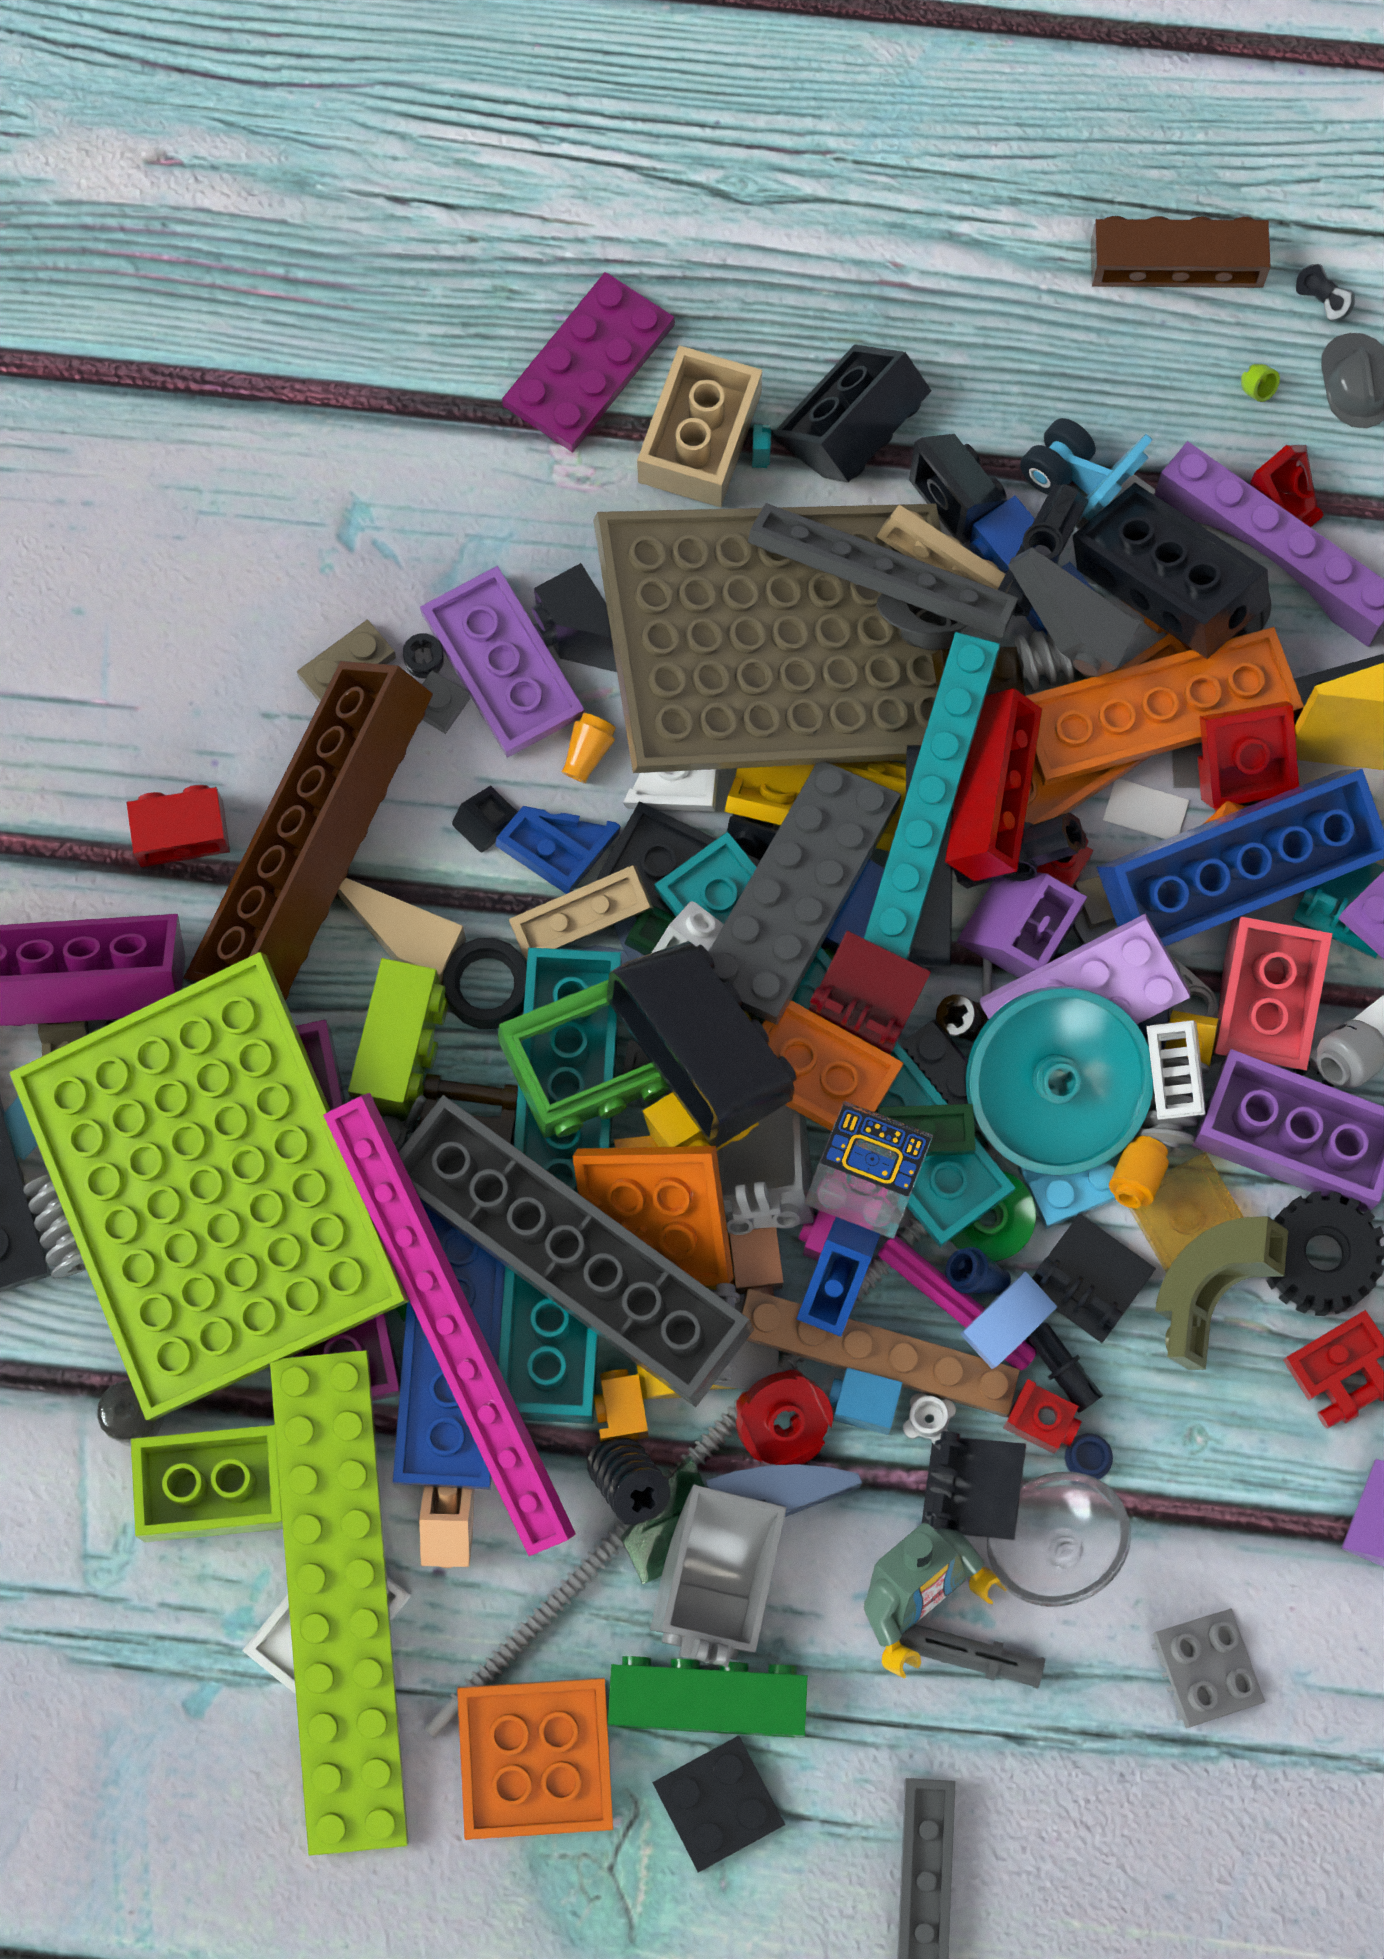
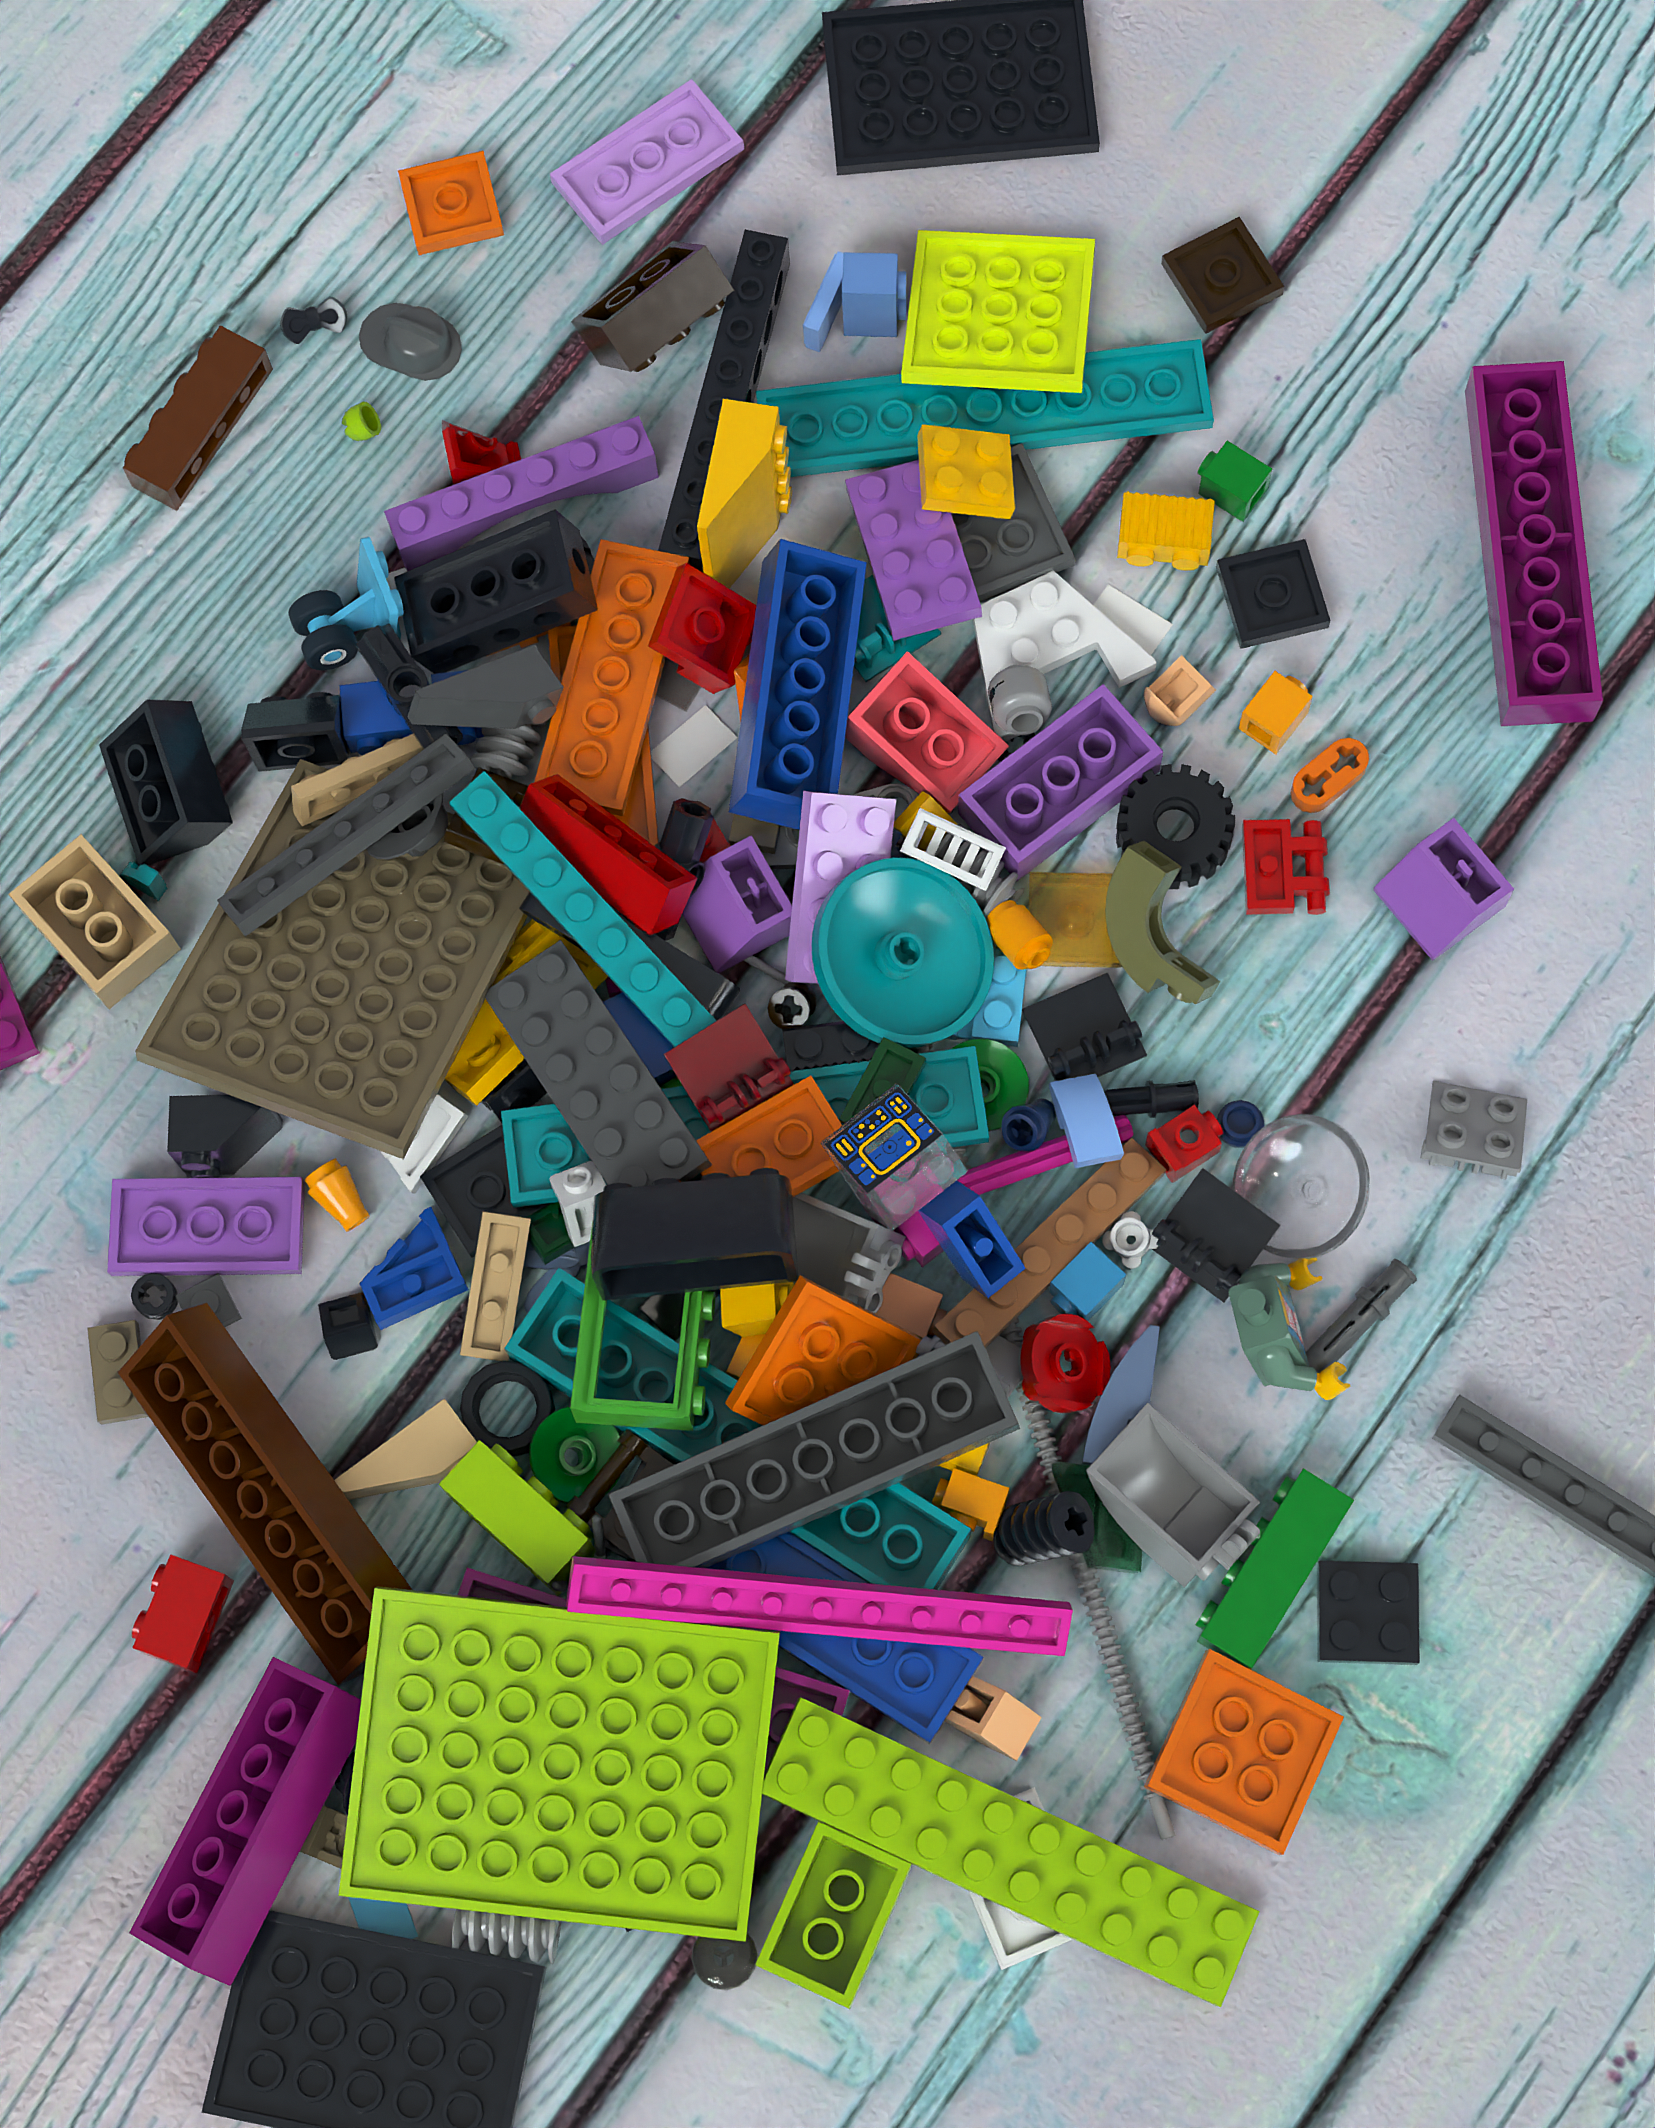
camera: 55 degrees left, 0 degrees up
(462, 1037) = (547, 1453): none -> green dish

